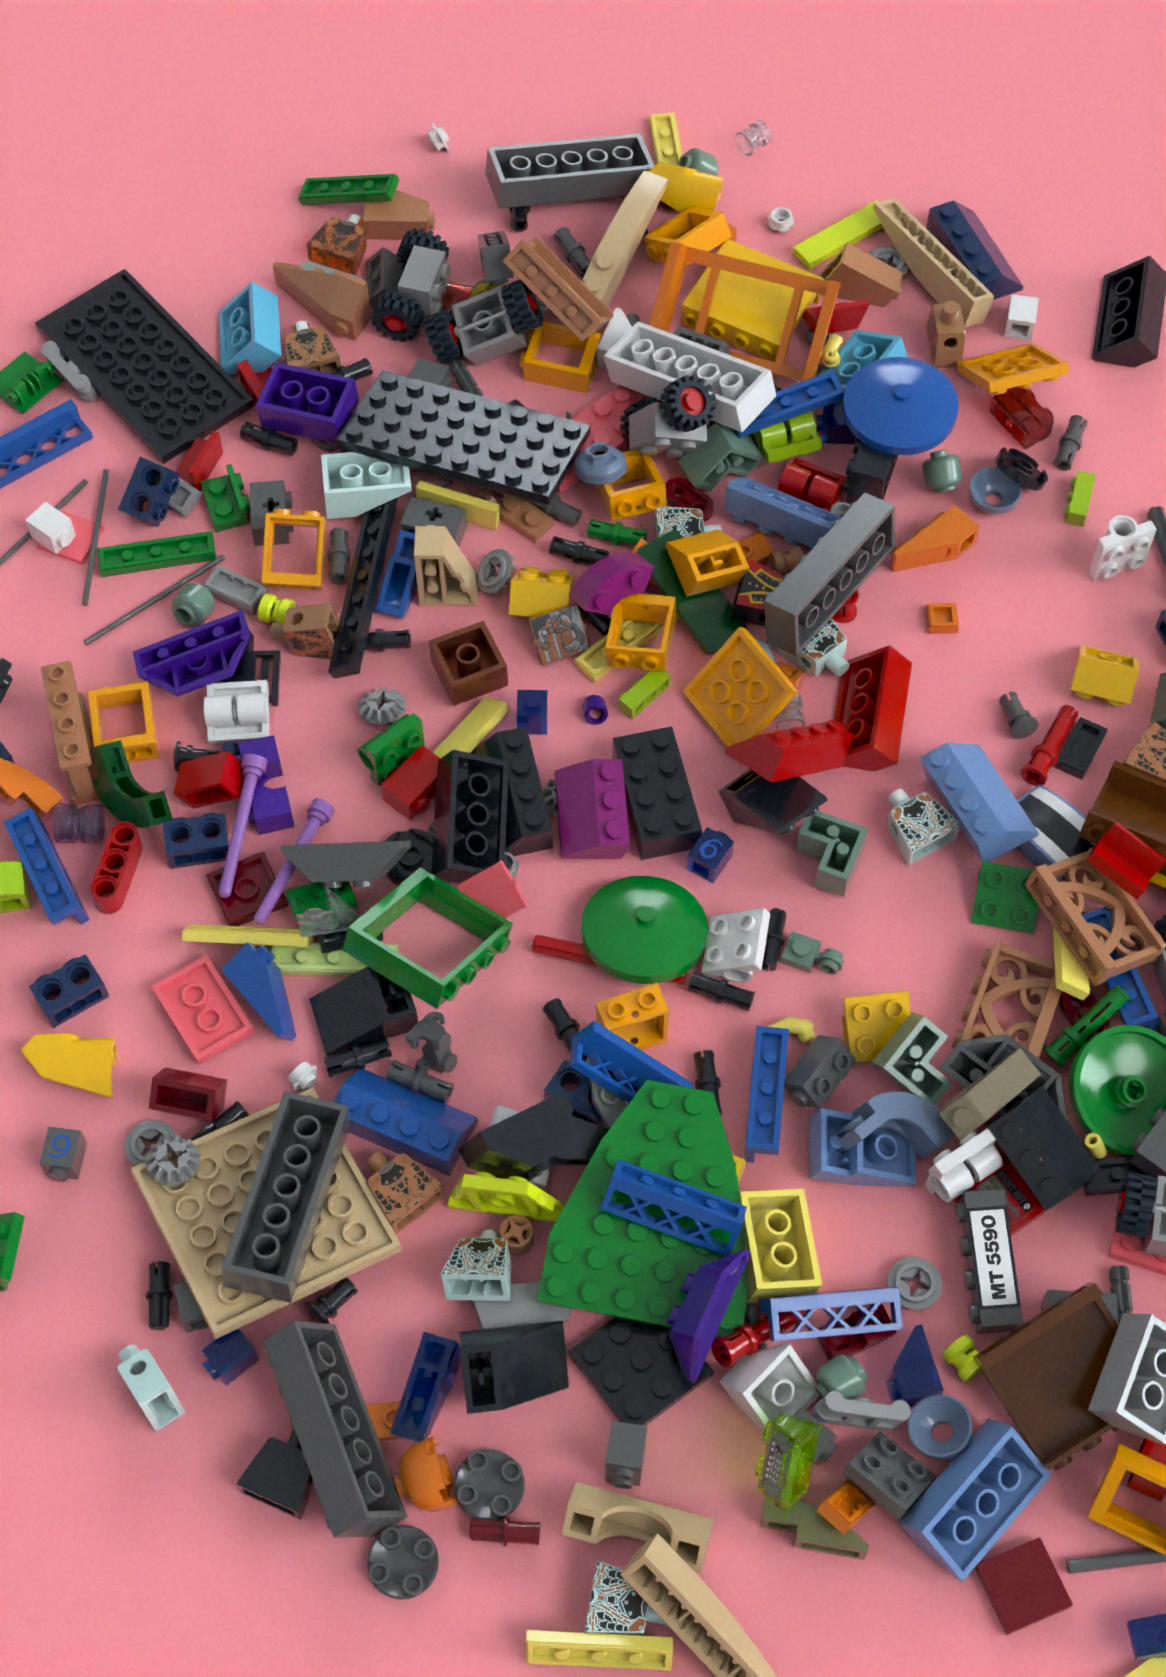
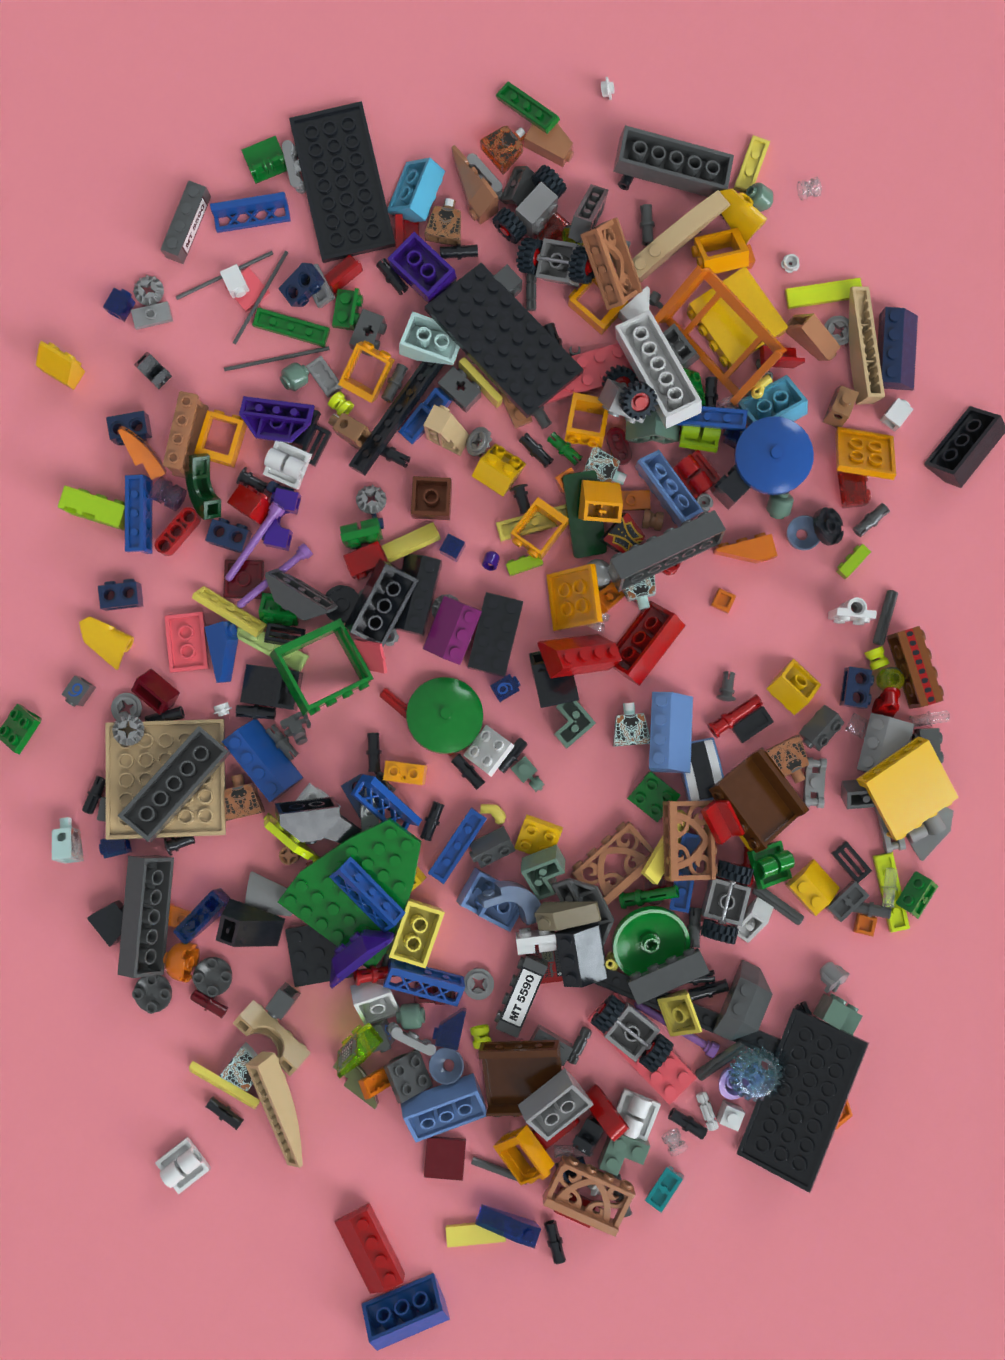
camera: 30 degrees right, 25 degrees up
(334, 919) = (277, 628): clear slope -> none
(479, 1269) = (259, 866): light aqua torso -> none
(559, 634) = (494, 503): piece -> none
(600, 464) = (571, 408): sand blue piece -> none
(611, 581) = (536, 490): magenta brick -> none

